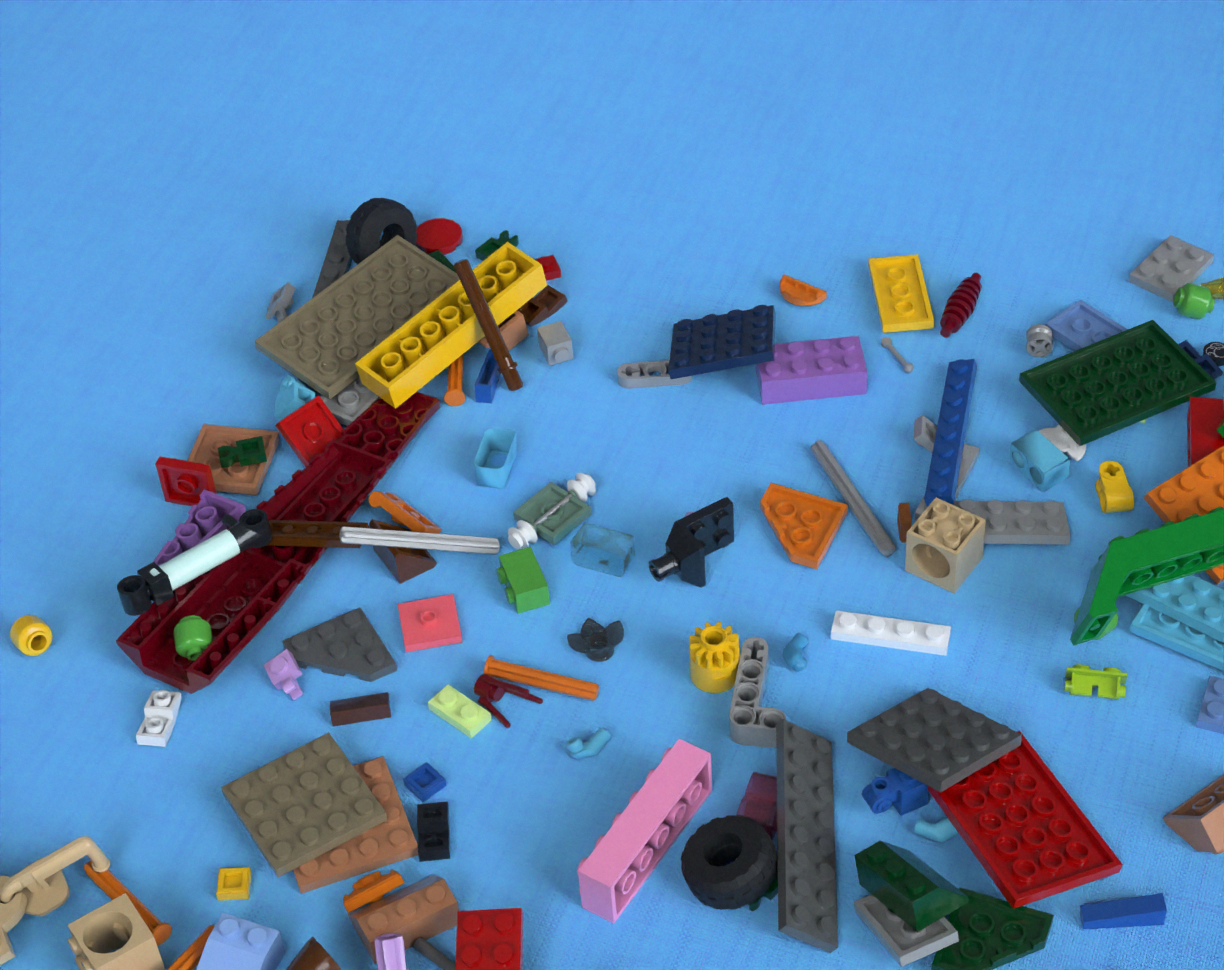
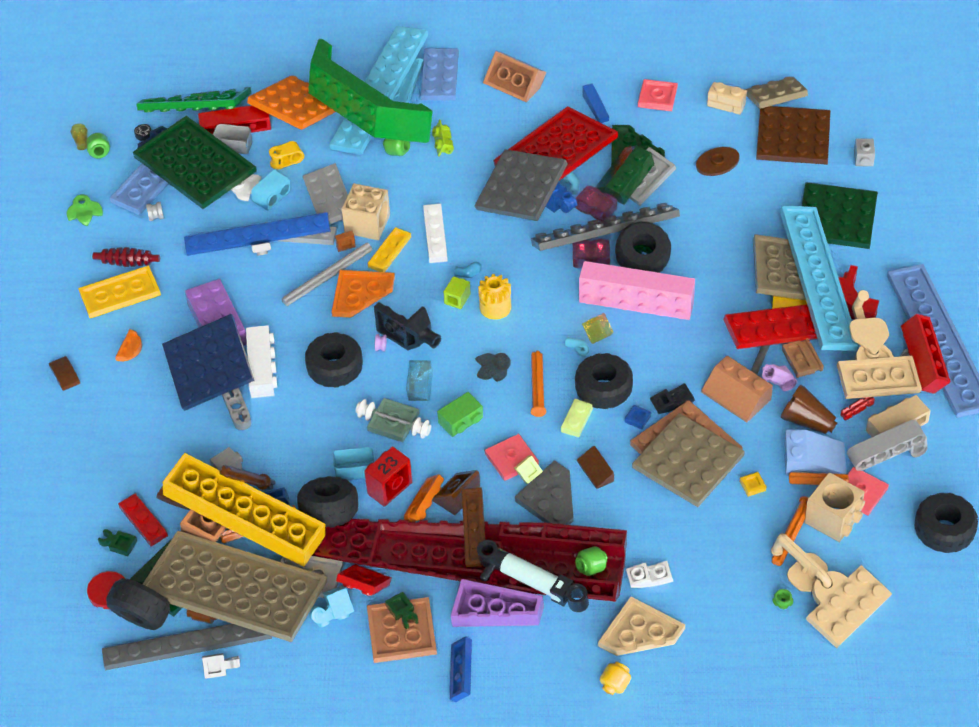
camera: 110 degrees left, 5 degrees up
(26, 846) = (783, 594): none -> bright green plate
(84, 683) = (640, 629): none -> tan plate
(140, 499) = (460, 669): none -> blue plate
(184, 480) = (443, 633): red plate -> none
(283, 673) = (587, 516): lavender plate -> none
(371, 889) = (728, 410): orange plate -> none
(391, 626) = (528, 469): none -> yellowish green plate
(419, 540) = (460, 465): light grey axle -> none
(435, 430) = (329, 500): none -> black tyre
(449, 477) = (388, 476): none -> red brick
(492, 690) = (556, 404): dark red plant -> none
(503, 767) = (604, 367): none -> black tyre
(607, 774) = (597, 328): none -> clear yellow panel
(678, 467) = (331, 347): none -> black tyre
(715, 401) = (260, 361): none -> white brick
(747, 718) = (521, 278): light grey beam -> none
(750, 621) = (457, 292): none -> lime brick
(775, 232) = (64, 373): none -> reddish brown slope
(875, 827) = (595, 203): none -> clear pink brick
(876, 574) = (389, 250): none -> yellow tile
(886, 343) = (169, 292): light grey hinge -> none
(1071, 279) = (85, 211): none -> bright green plate
(1170, 421) = (231, 133): none -> light grey piece
(1171, 267) = (60, 165): light grey plate -> none

